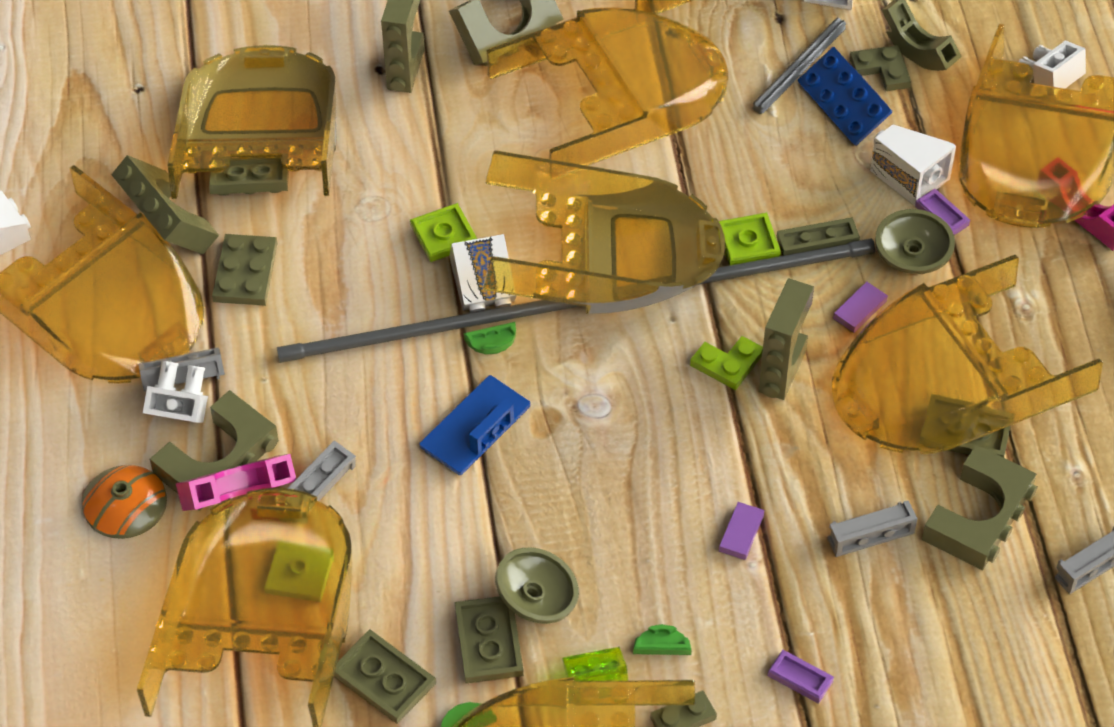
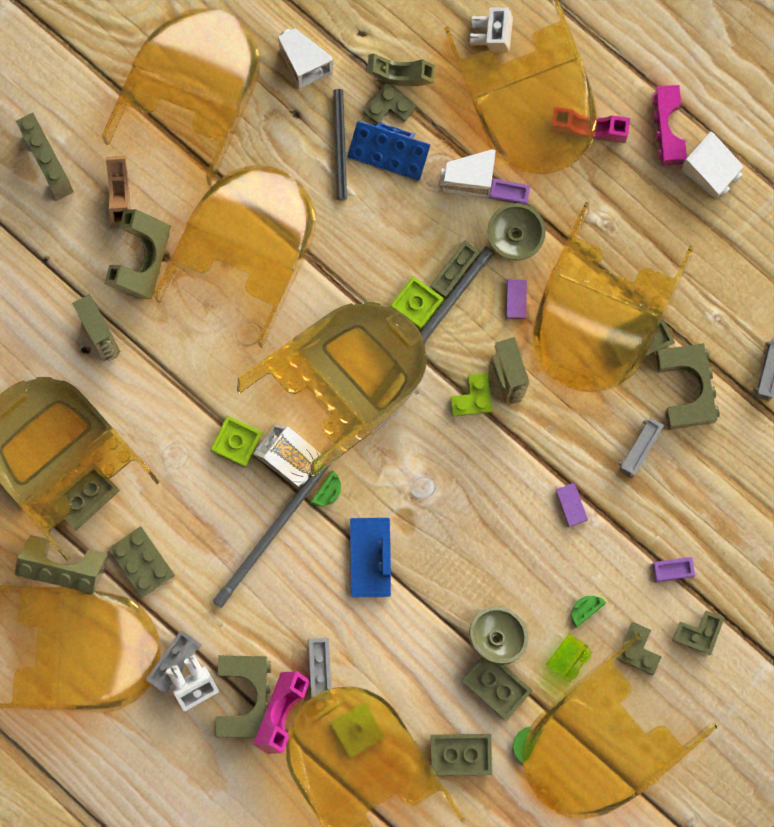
camera: 45 degrees left, 25 degrees up
(126, 512) = (233, 768): orange dish -> none

